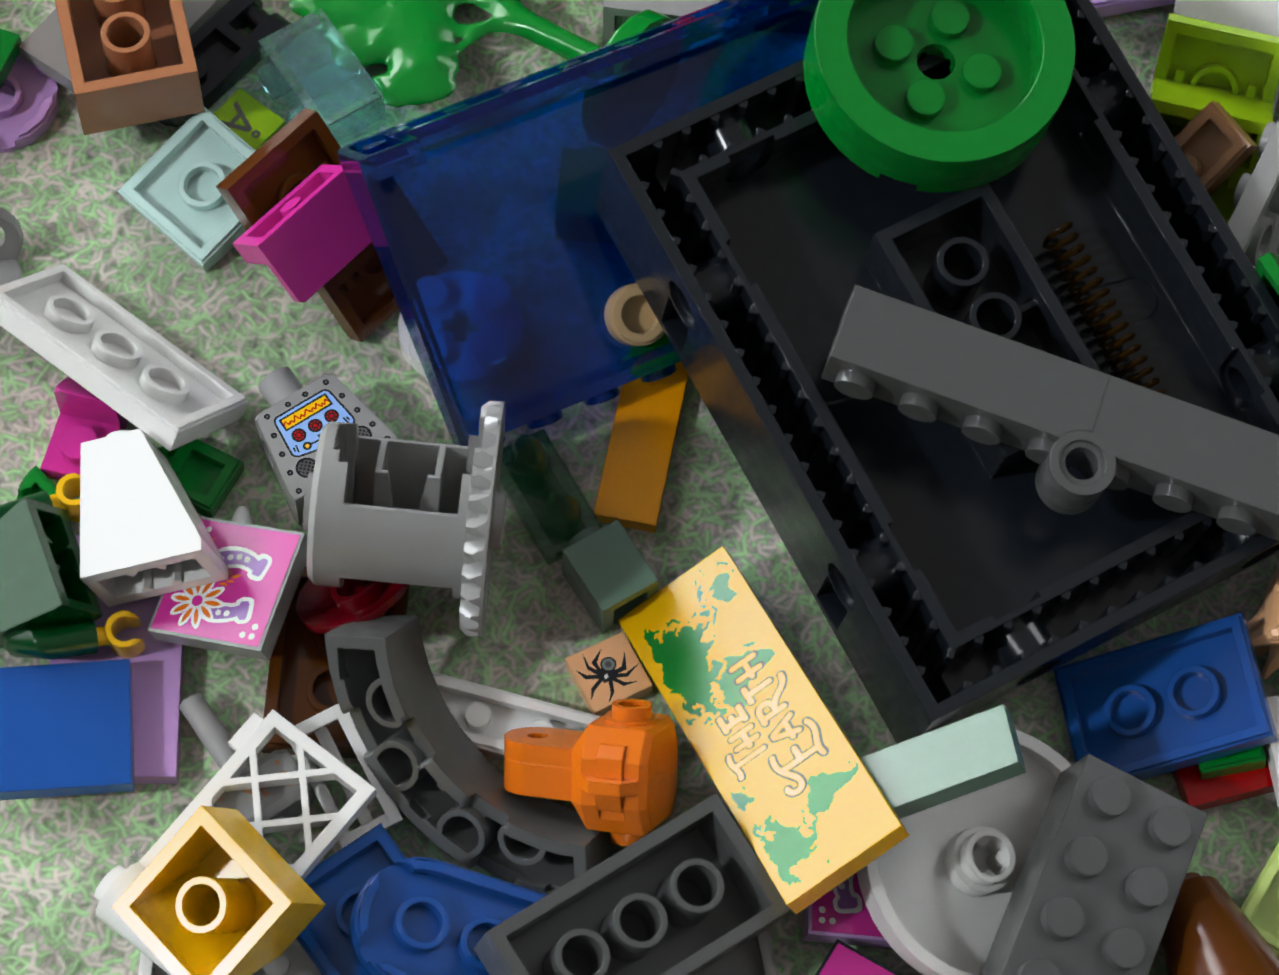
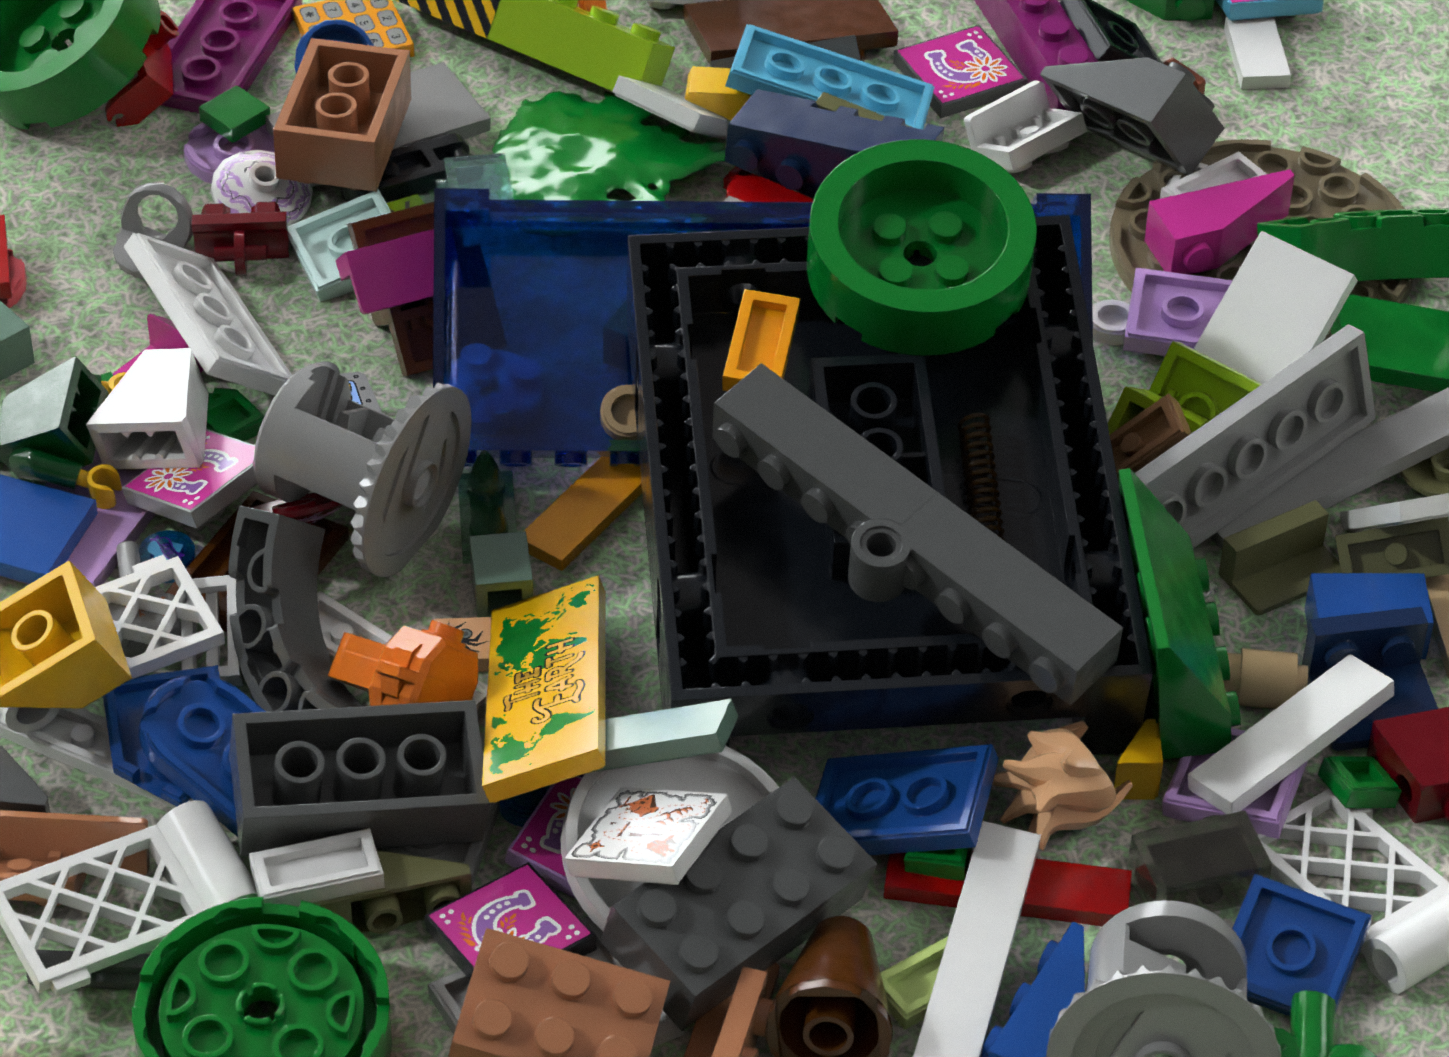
camera: 25 degrees right, 20 degrees down
(54, 169) = (251, 179): none -> white dish
(82, 229) = (241, 235): none -> dark red hips
(234, 688) = (170, 545): none -> clear blue tile
(819, 239) = (761, 335): none -> light orange tile
(983, 891) = (648, 835): none -> white tile

